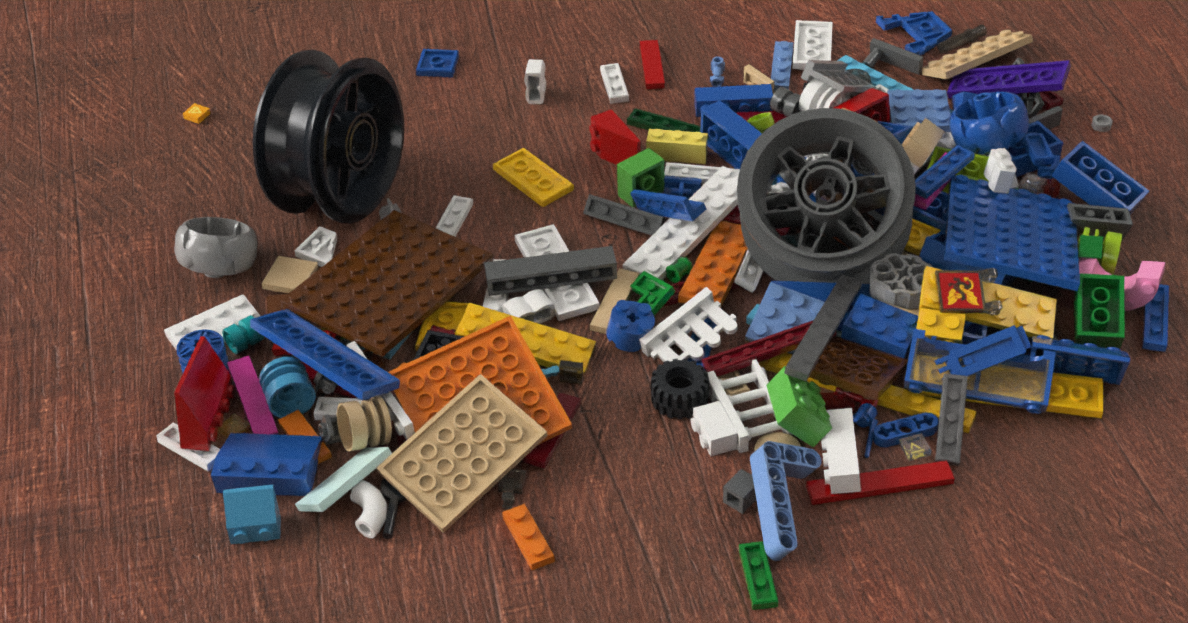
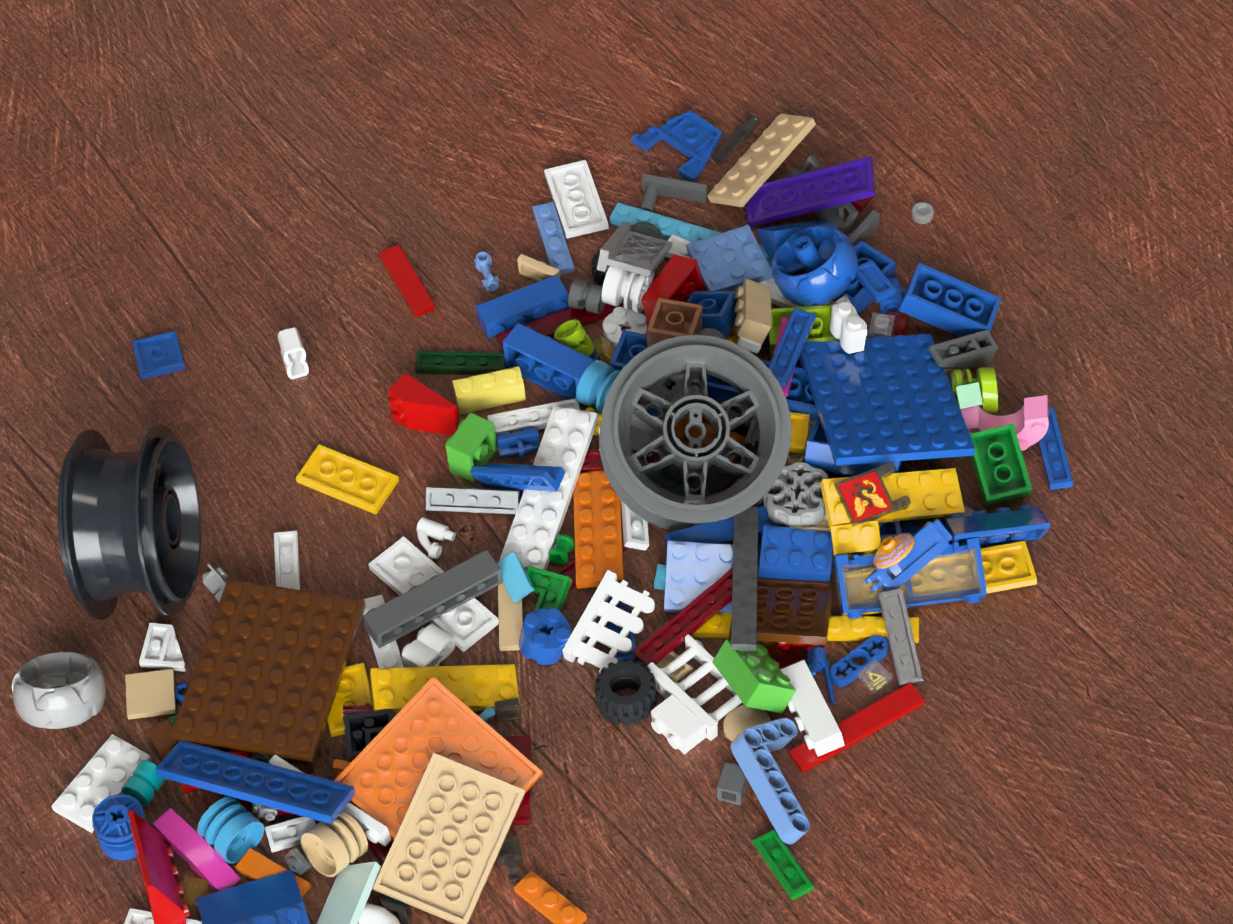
camera: 20 degrees left, 10 degrees up
(580, 227) = (429, 528): none -> white plant
(614, 83) = (376, 321): white tile -> none
(628, 276) = (515, 577): none -> medium azure tile
(969, 339) = (893, 550): none -> light orange dish

